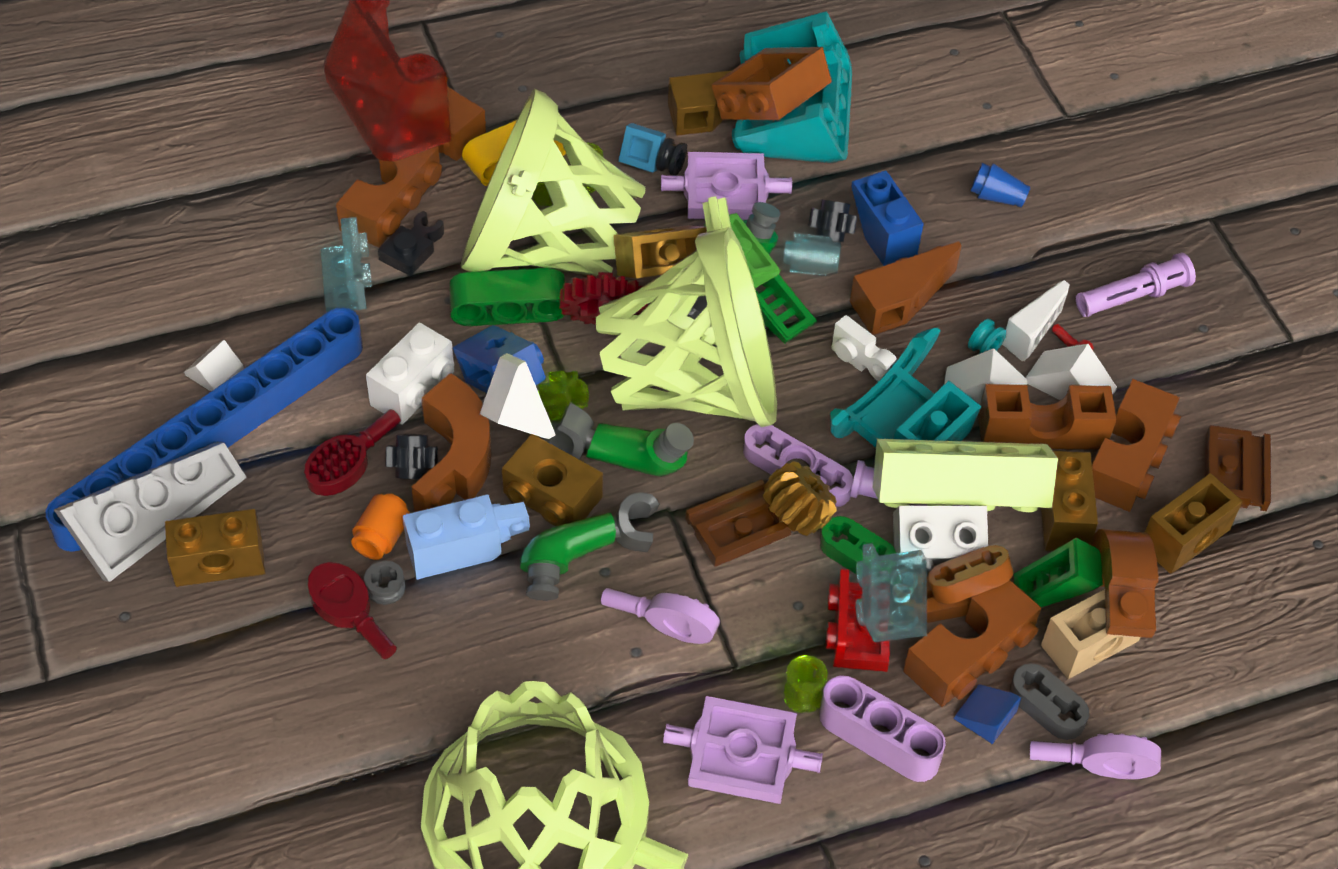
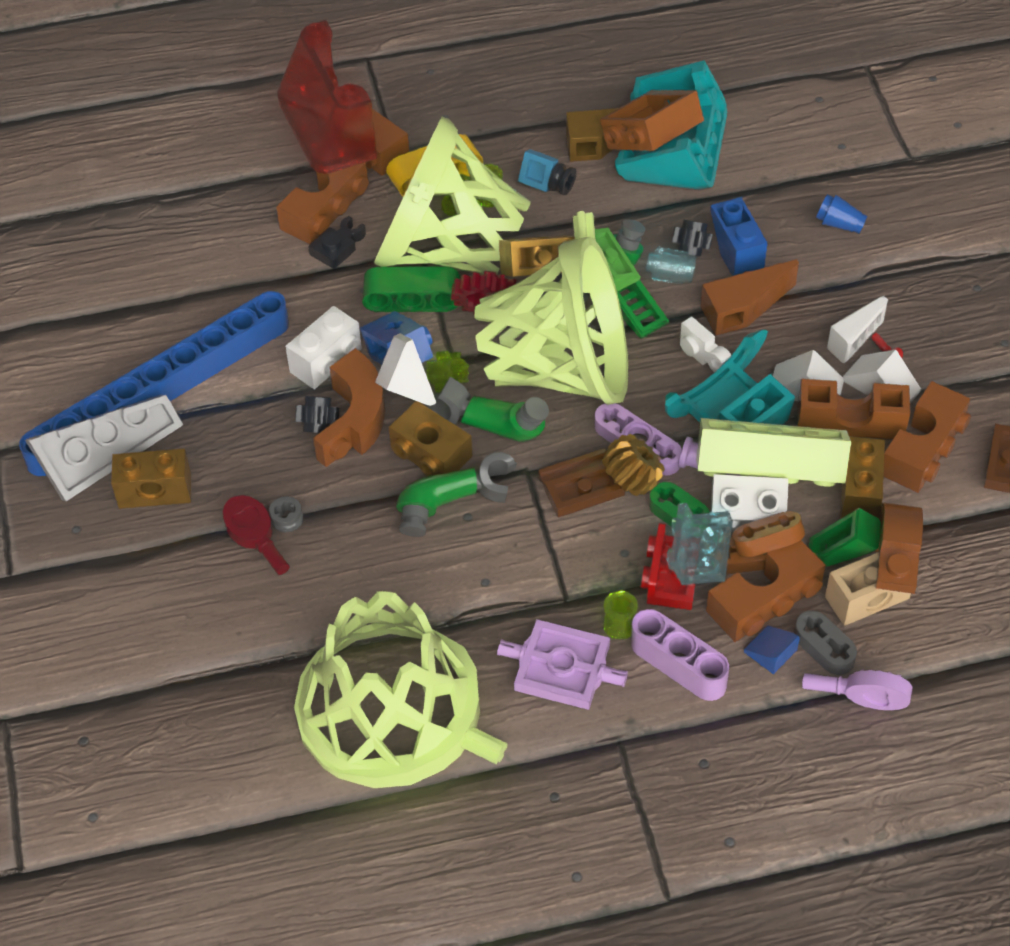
camera: 10 degrees right, 0 degrees up
(215, 366) = (166, 334): white slope -> none
(343, 269) = (279, 260): clear light blue bracket -> none
(343, 459) = (264, 413): dark red piece -> none
(379, 526) = (286, 468): orange brick -> none
(461, 534) = (351, 478): light blue hinge -> none
(669, 614) = (514, 551): lavender piece -> none
(729, 175) = (608, 199): lavender plate -> none
(987, 337) = (812, 340): teal bush -> none
(1151, 281) = (963, 300): lavender pin -> none
(1192, 522) = (965, 503): pearl gold brick -> none

